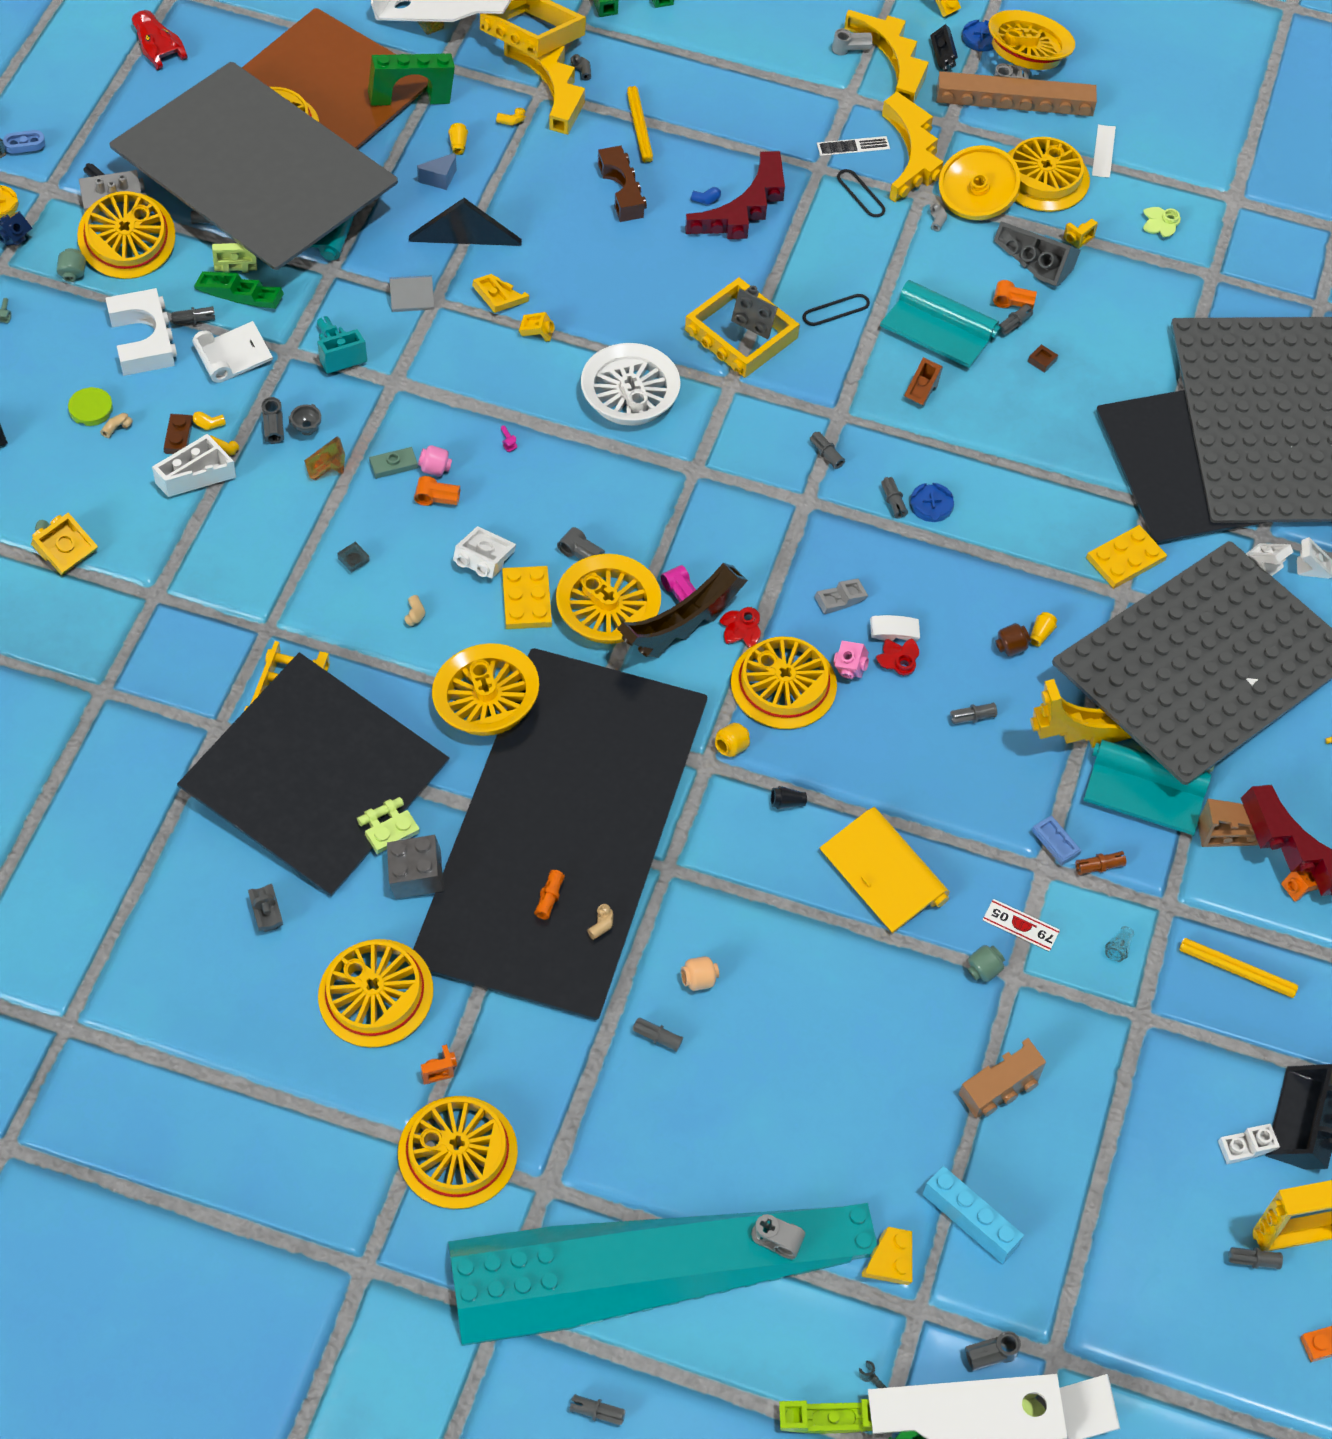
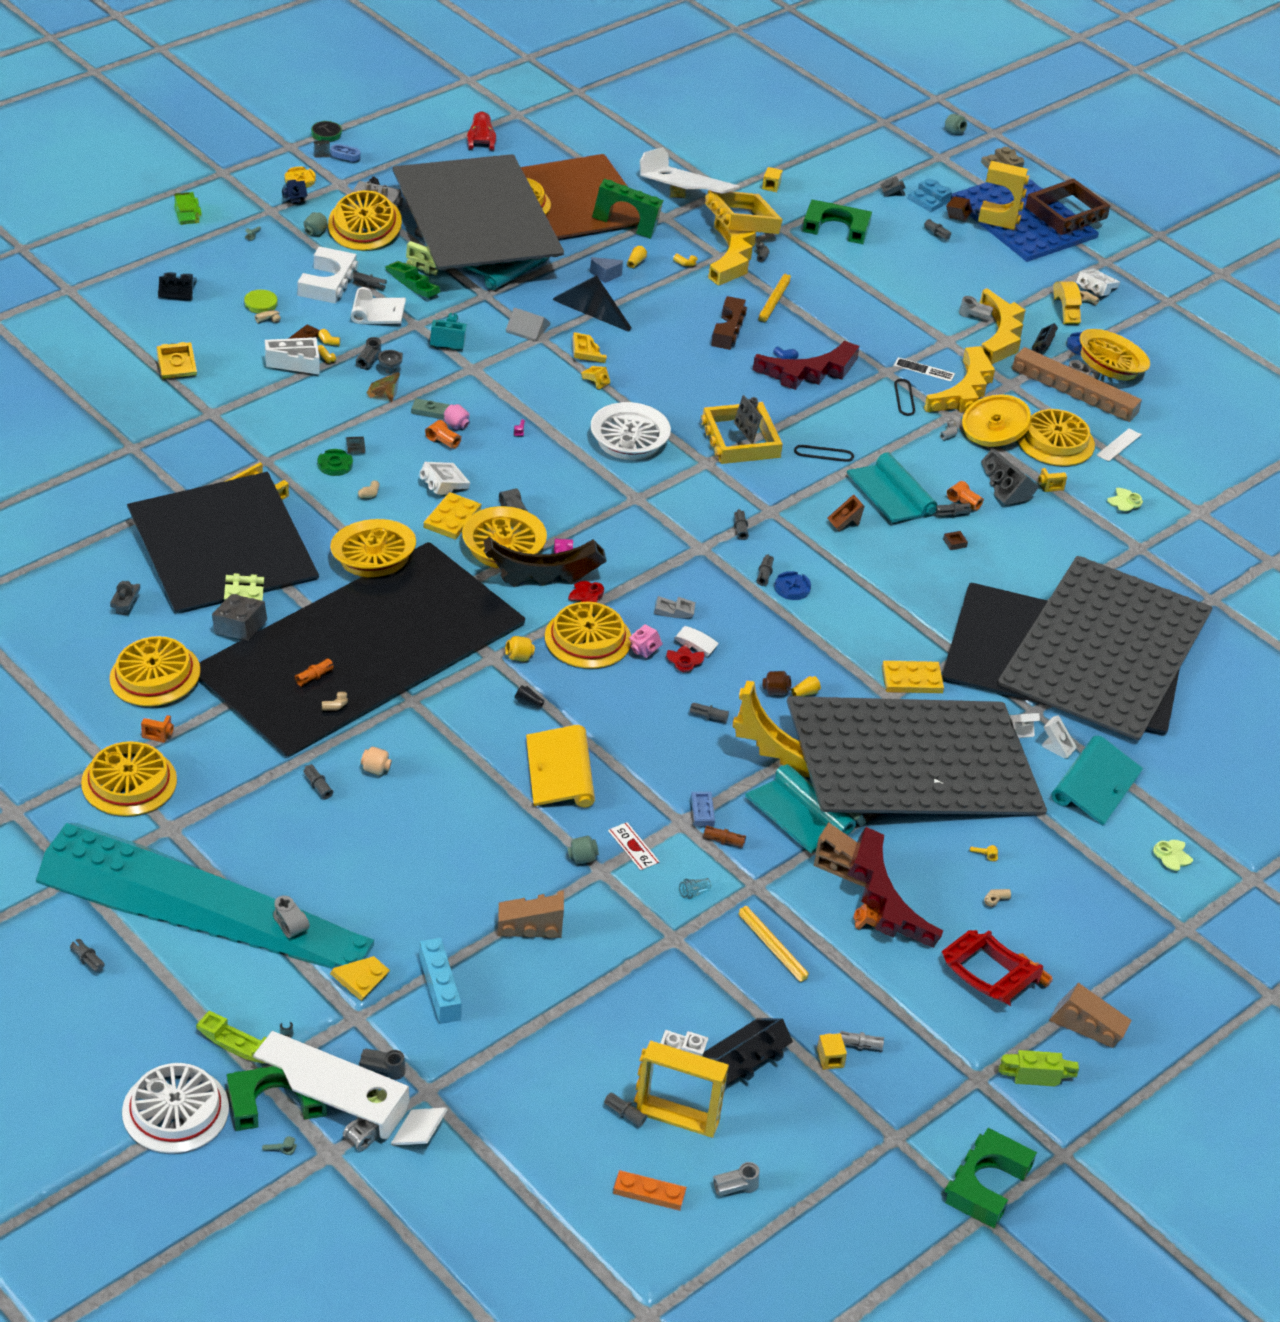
camera: 30 degrees right, 15 degrees down
(346, 591) = (335, 462): none -> green tile

